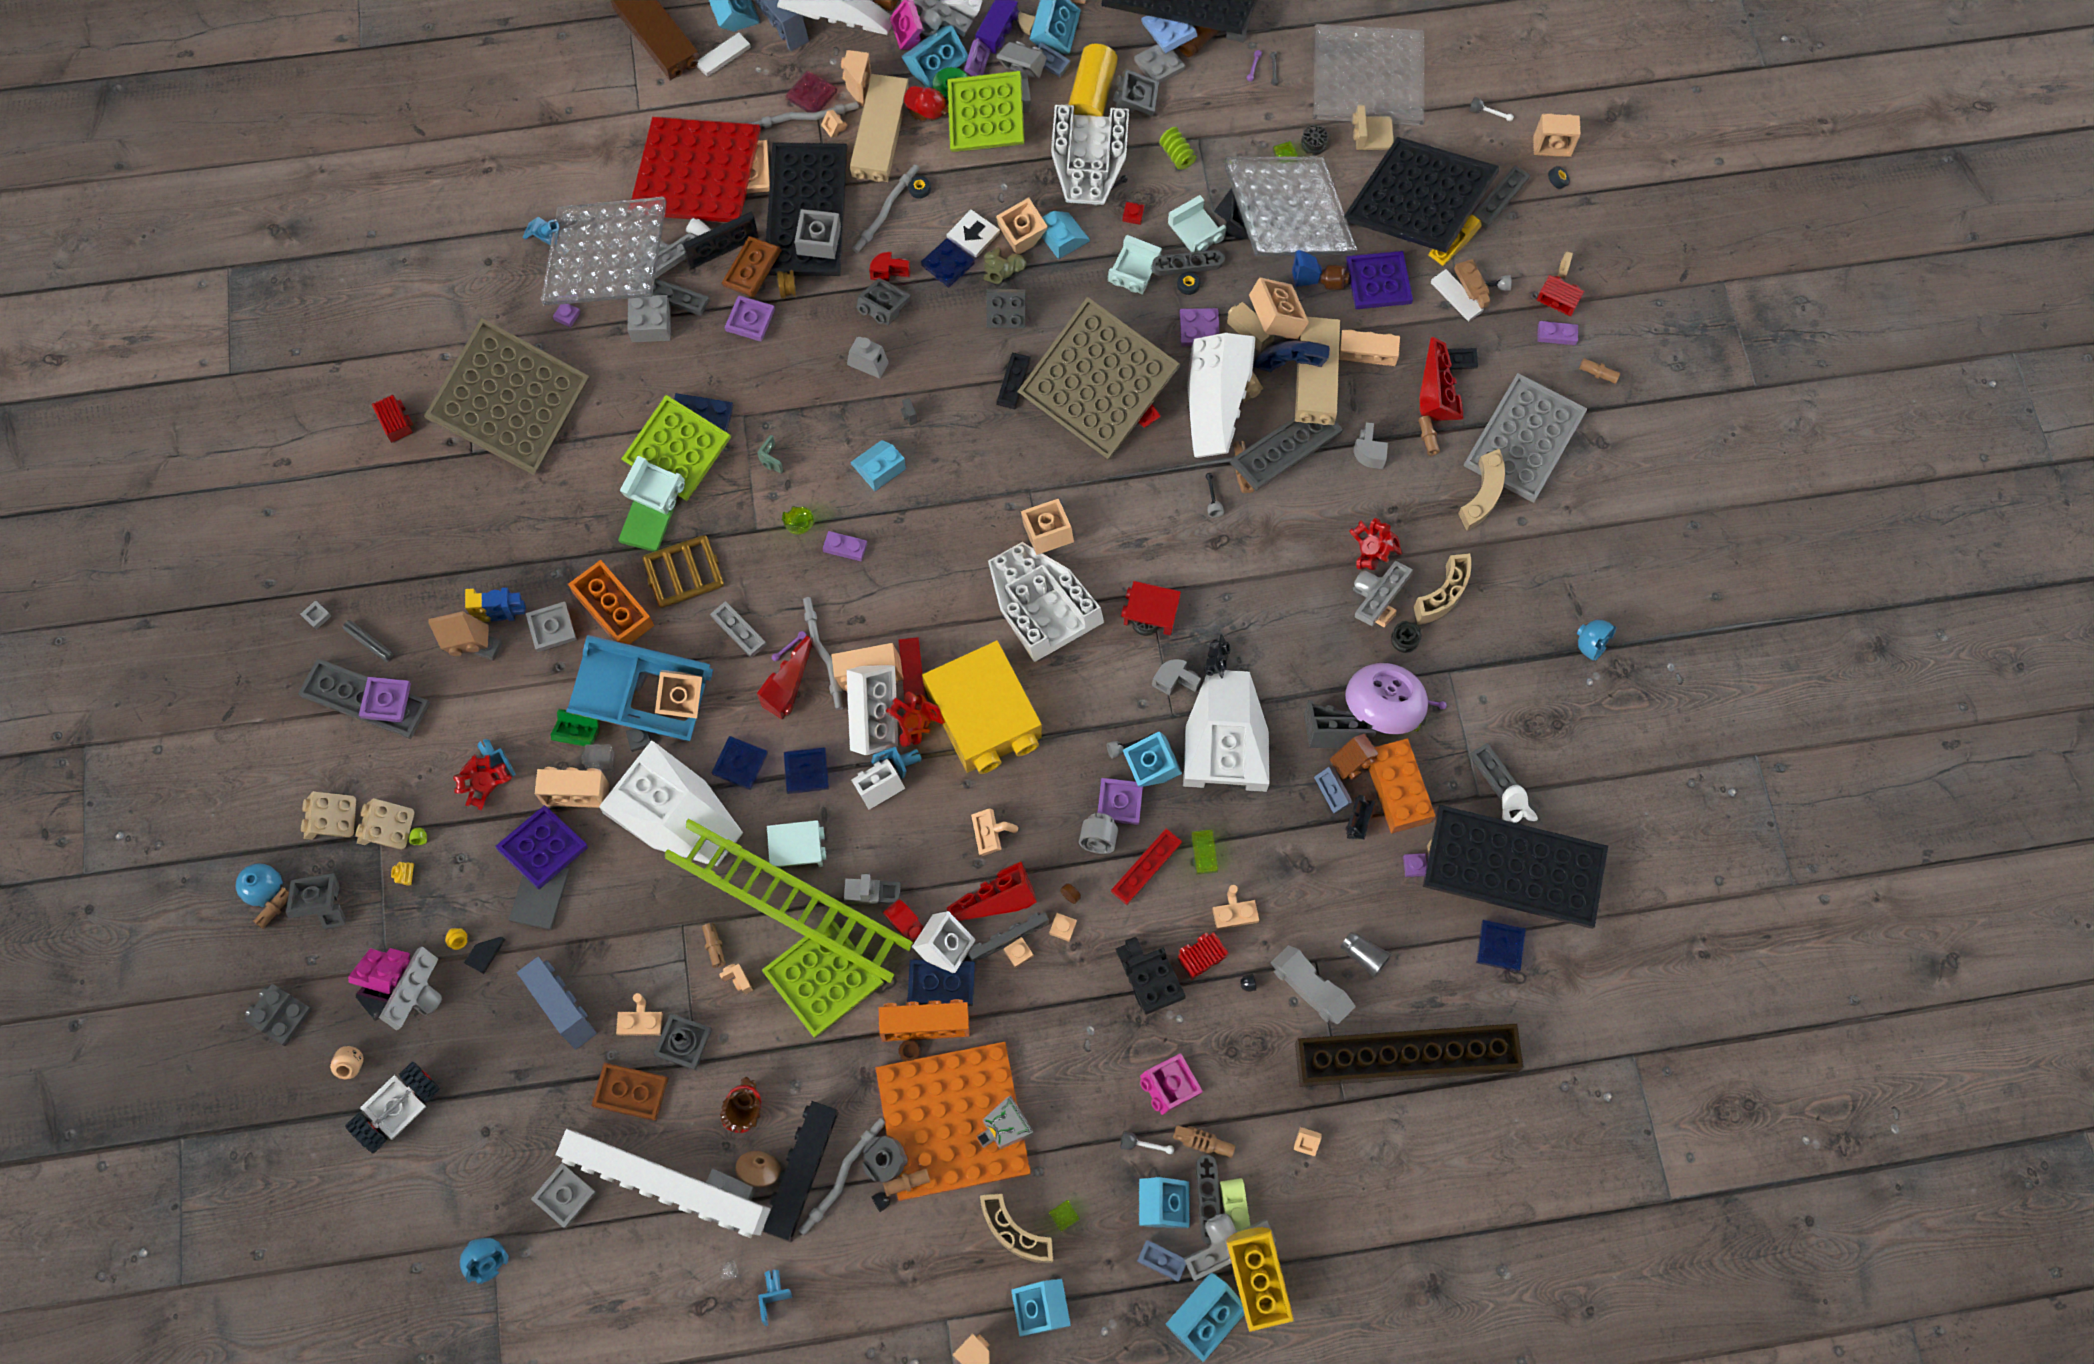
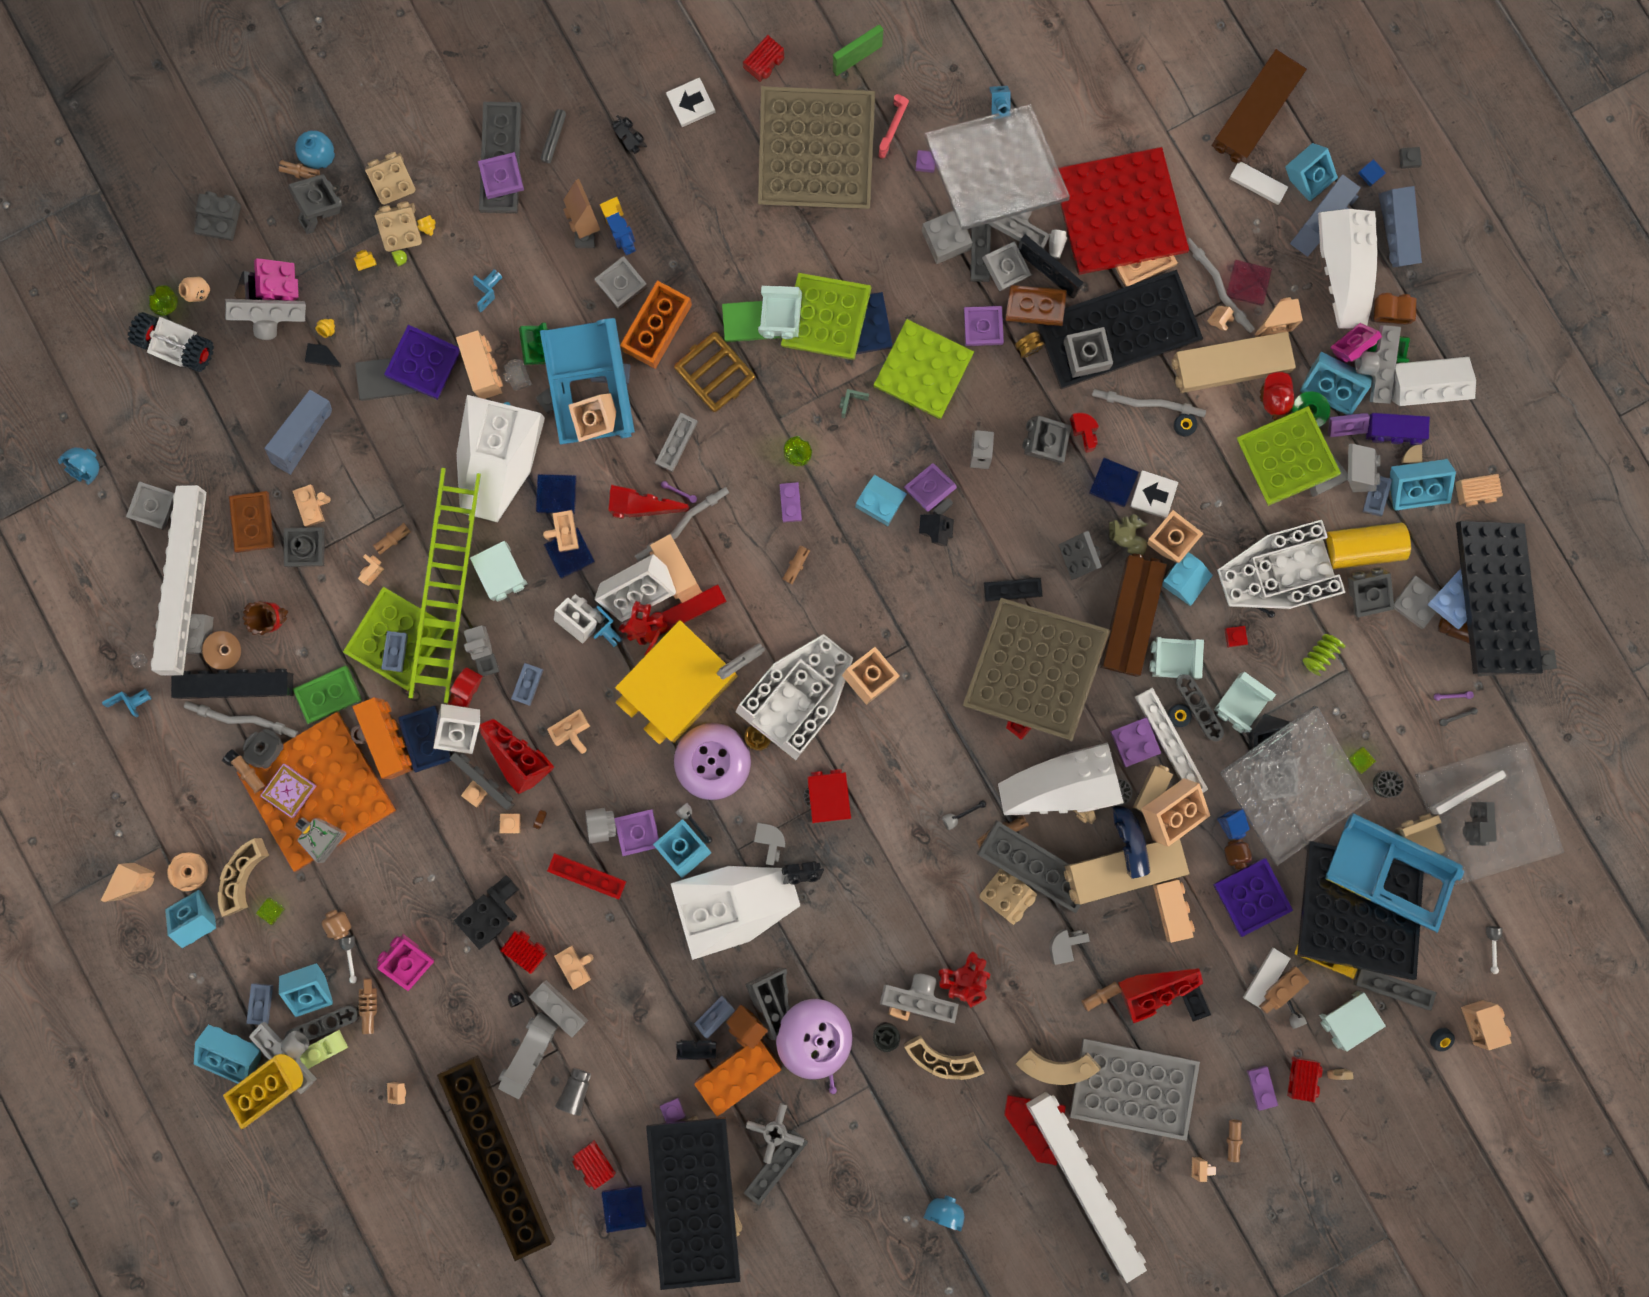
camera: 70 degrees right, 15 degrees up
(315, 615) = (559, 82): light grey plate -> none
(342, 1102) = (163, 301): none -> clear neon green hair
(395, 570) = (634, 138): none -> black hinge
(398, 795) = (426, 225): none -> yellow plate
(400, 501) = (690, 102): none -> white tile
(429, 330) = (857, 50): none -> bright green tile
(481, 779) = (464, 286): red piece -> none
(499, 314) = (900, 102): none -> coral hinge
(702, 277) = (1006, 266): none -> light grey plate
(767, 384) = (923, 369): none -> lime plate
(781, 763) = (564, 531): none -> light nougat plate
(836, 978) = (394, 651): none -> sand blue plate
(852, 1073) = (327, 694): none -> bright green tile
(885, 413) = (930, 487): none -> medium lavender plate
(909, 560) = (796, 565): none -> medium nougat pin
(925, 858) = (527, 684): none -> sand blue plate
(926, 421) = (937, 527): none -> black brick
(941, 1145) = (288, 790): none -> tile
(978, 1284) = (178, 871): none -> light nougat plate
(986, 634) = (740, 661): none -> light grey axle
(1061, 725) = (735, 763): none -> lavender brick
(1067, 655) = (756, 739): none -> pearl gold wheel
(1074, 282) = (1133, 615): none -> reddish brown brick
(1105, 1144) = (336, 924): none -> medium nougat head
(1203, 299) = (1169, 737): none -> white tile
(1204, 852) = (617, 922): clear neon green plate -> none
(1274, 939) = (558, 1008): none -> light grey brick
(1305, 481) = (1008, 896): none -> tan bracket
(1344, 78) = (1467, 792): none -> white tile
(1377, 74) = (1483, 824): none -> dark grey plate
(1380, 180) = (1366, 857): none -> dark azure piece
(1447, 960) = (593, 1165): none -> red brick
(1474, 763) = (772, 1141): none -> light grey bar
(1516, 799) = (761, 1185): white piece -> none
(1520, 238) = (1352, 1022): none -> light aqua panel
(1534, 533) = (1027, 1129): none -> red plate
(1604, 505) = (1086, 1187): none -> white brick
(1618, 406) = (1201, 1169): none -> light nougat tile

